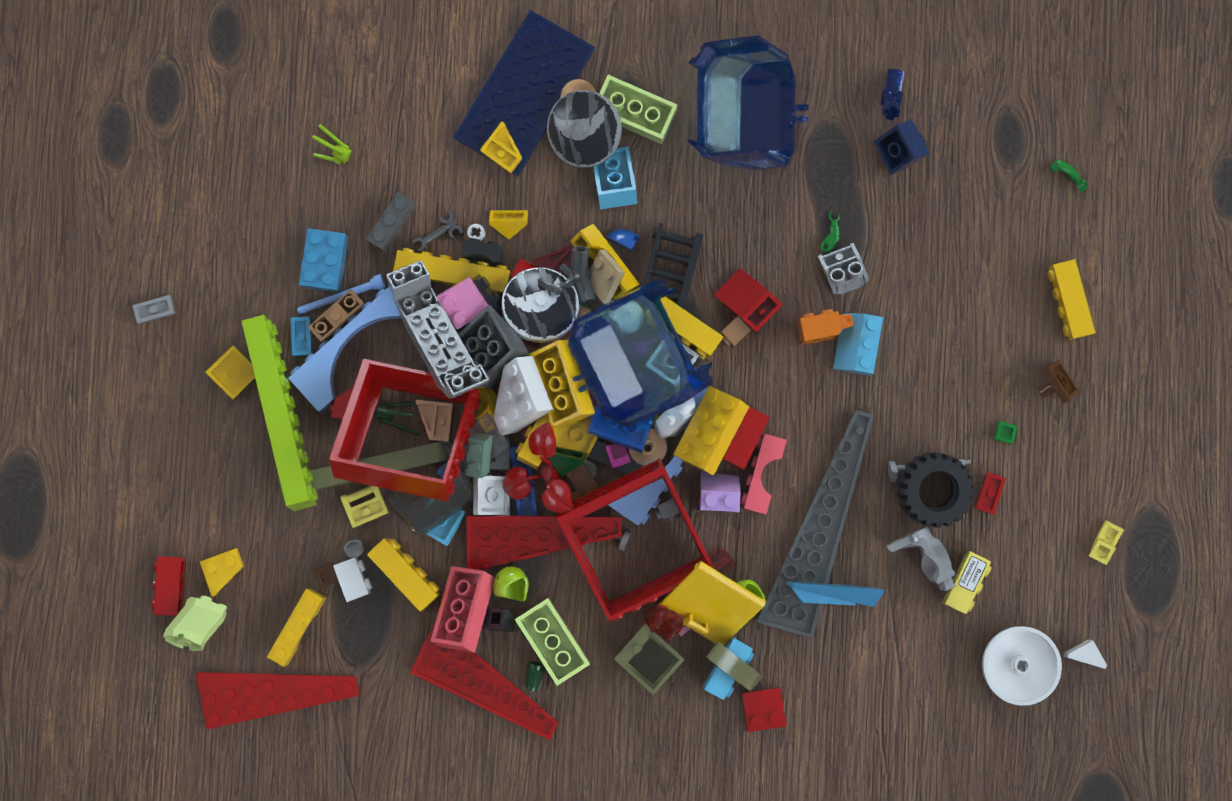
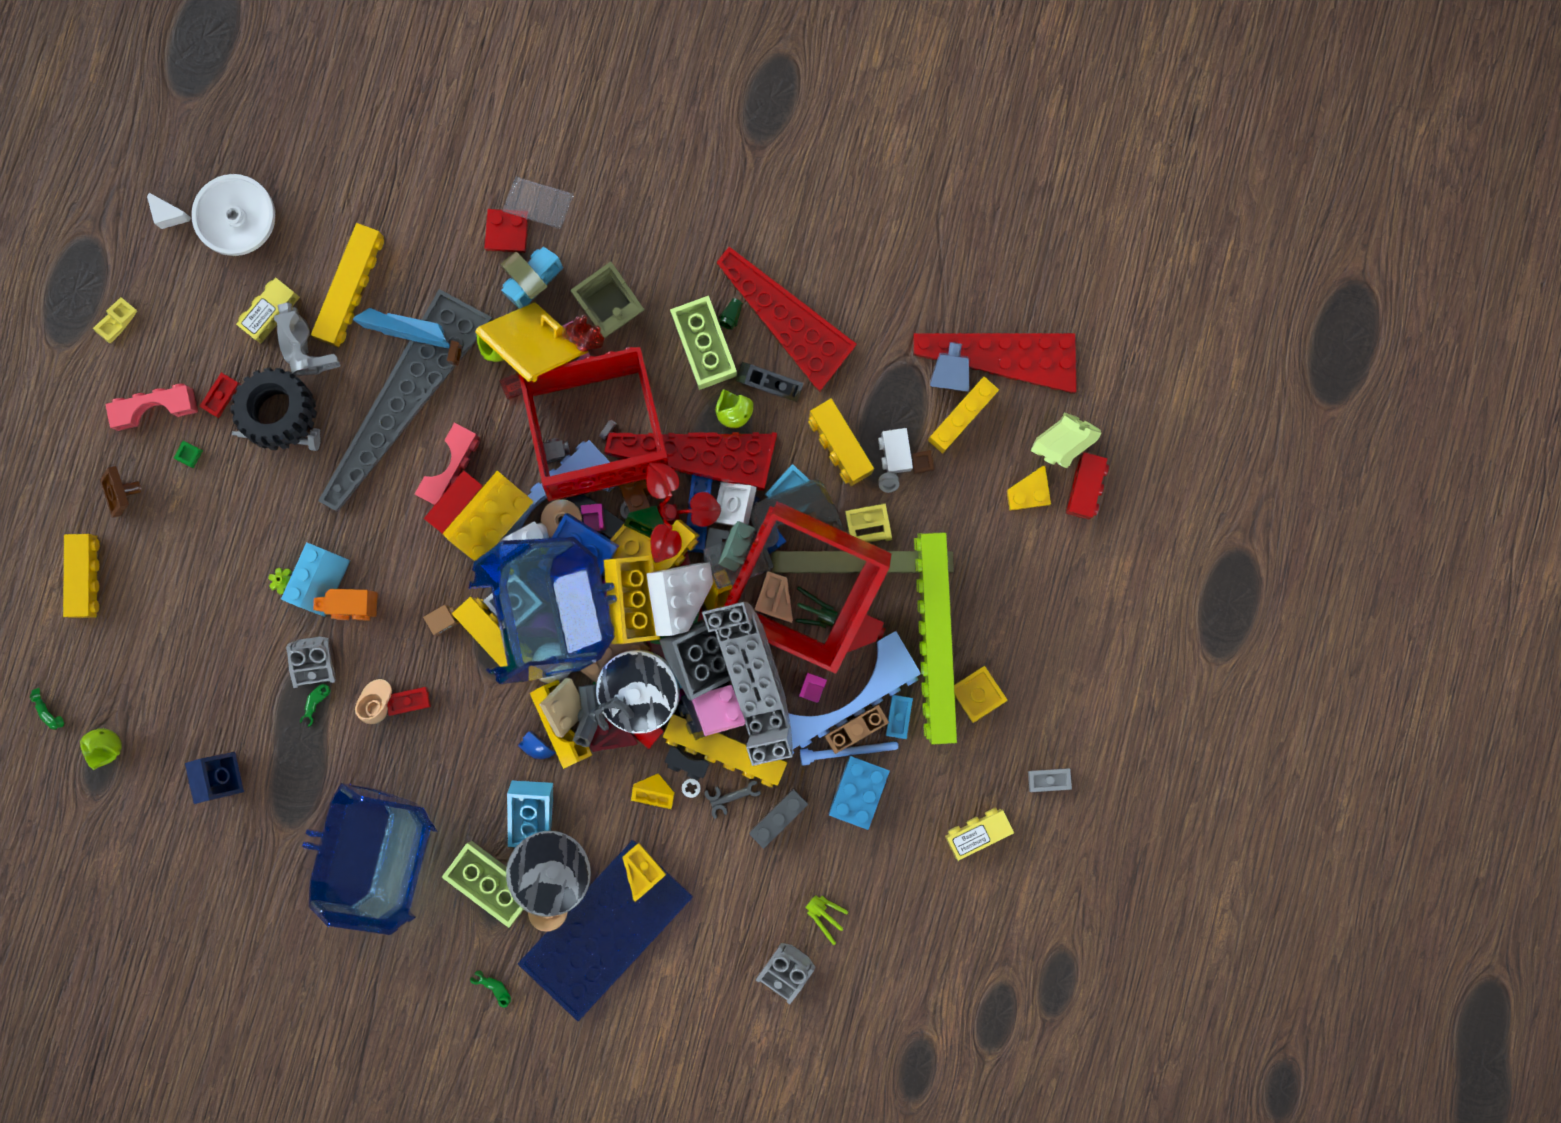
camera: 175 degrees left, 0 degrees up
(208, 248) = (979, 833): none -> light yellow brick
(315, 666) = (951, 369): none -> sand blue torso
(355, 91) = (786, 971): none -> light grey slope
(385, 345) = (812, 687): none -> dark pink panel
(463, 609) = (787, 393): coral brick -> none
(602, 17) = (496, 986): none -> green arm
(688, 261) = (471, 705): black fence -> none
(719, 492) = (497, 452): lavender slope -> none
(740, 743) = (538, 202): none -> clear piece
(748, 253) = (408, 701): none -> red plate
(748, 300) = (418, 650): red slope -> none
(778, 246) = (373, 701): none -> light nougat cap
(781, 578) = (454, 353): none -> reddish brown tile
(885, 336) = (283, 576): none -> lime plant
(892, 94) = (211, 838): clear blue piece -> none
(898, 623) = (348, 285): none -> yellow brick
(1010, 152) = (100, 747): none -> lime piece
(1070, 457) = (127, 412): none -> coral arch

